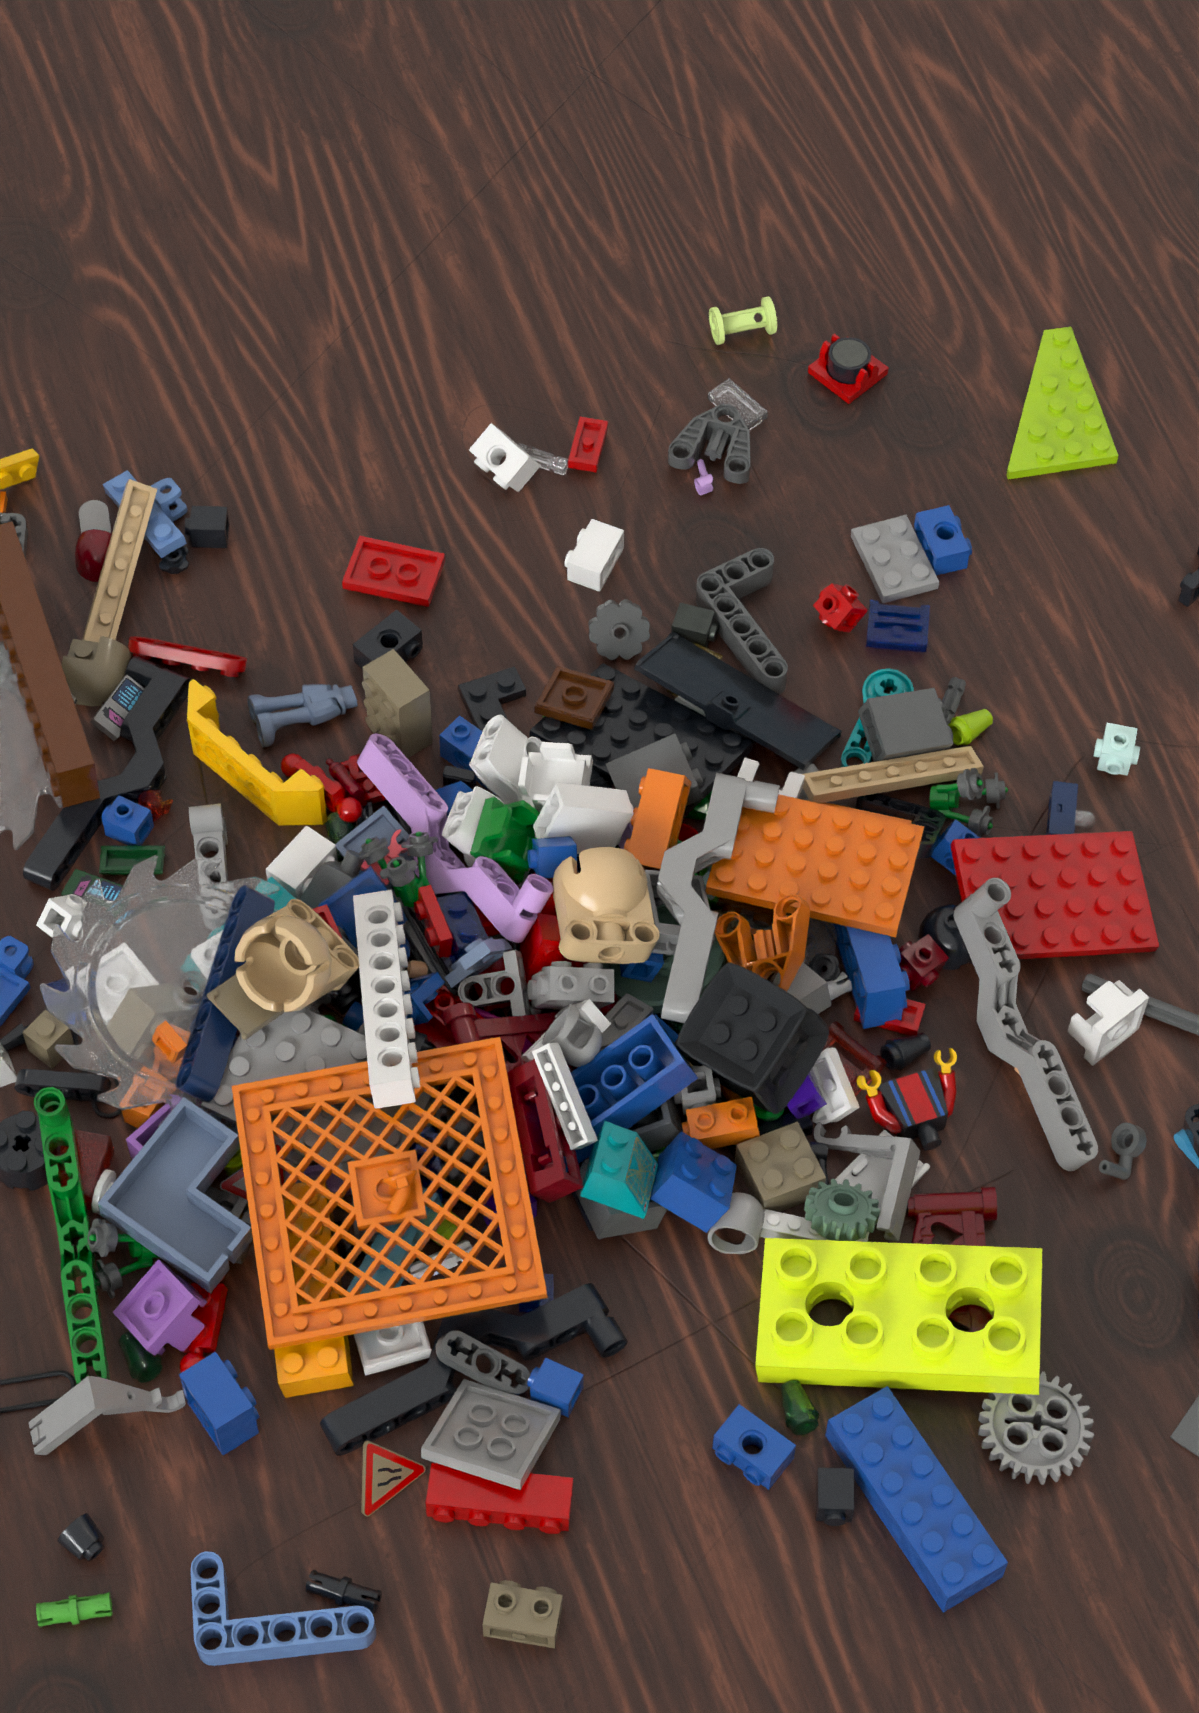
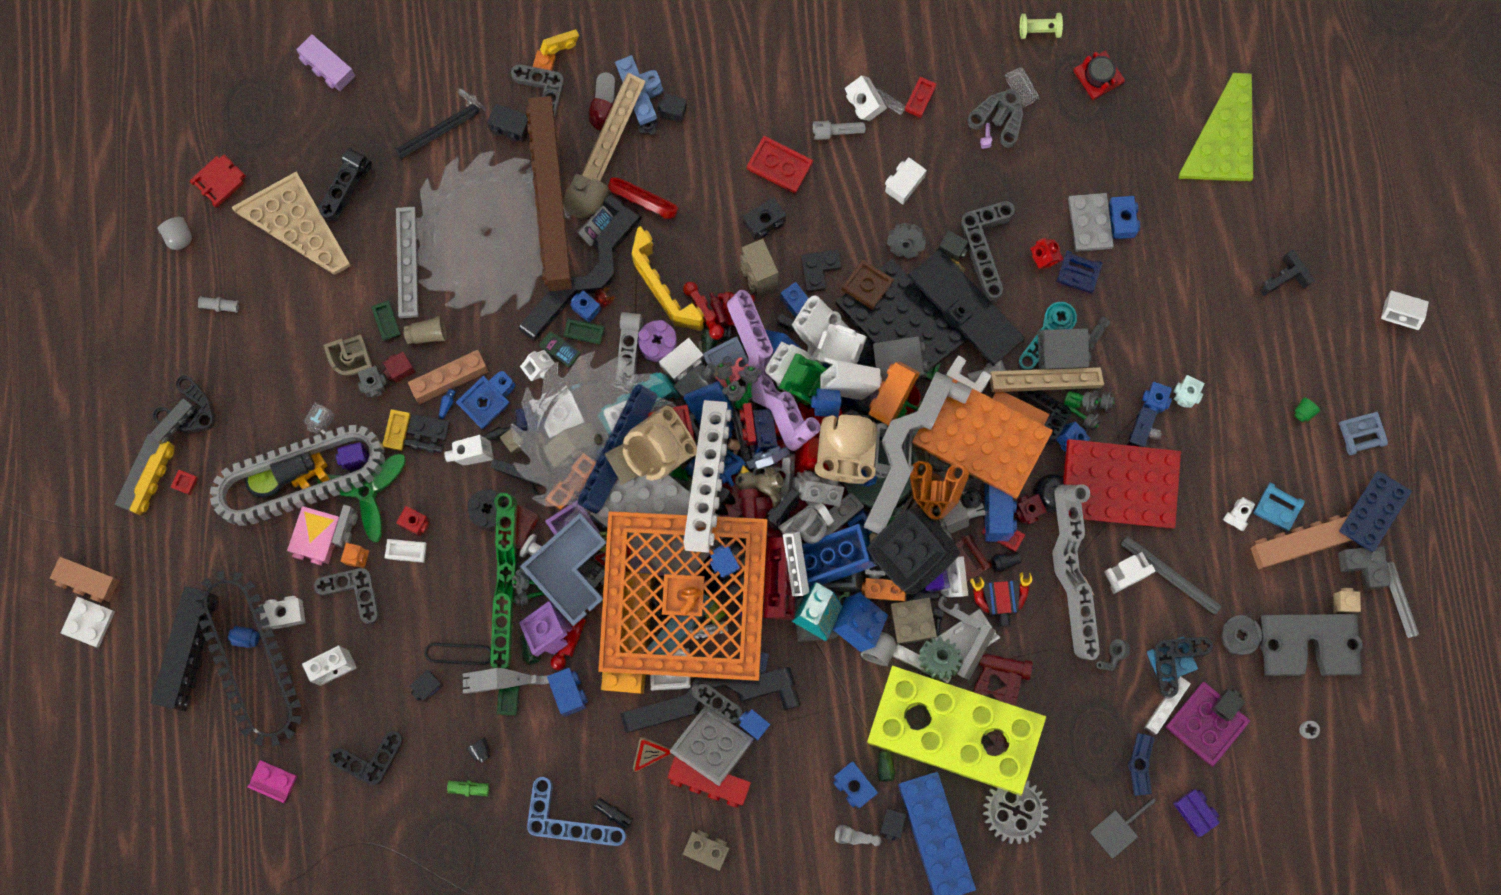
camera: 15 degrees right, 20 degrees up
(117, 1445) = (508, 701): none -> dark green tile
(169, 1042) = (578, 474): orange tile -> none
(253, 843) = (659, 331): none -> medium lavender brick
(317, 706) = (715, 251): sand blue piece -> none
(445, 1113) = (724, 561): none -> blue brick
(452, 511) = (825, 129): none -> light grey piece
(486, 995) = (766, 483): none -> dark tan animal
(521, 1028) = (787, 503): none -> black plate
(762, 1535) = (848, 835): none -> light grey piece
(969, 726) = (1103, 353): lime cone -> none
(1072, 765) = (1157, 397): none -> blue brick

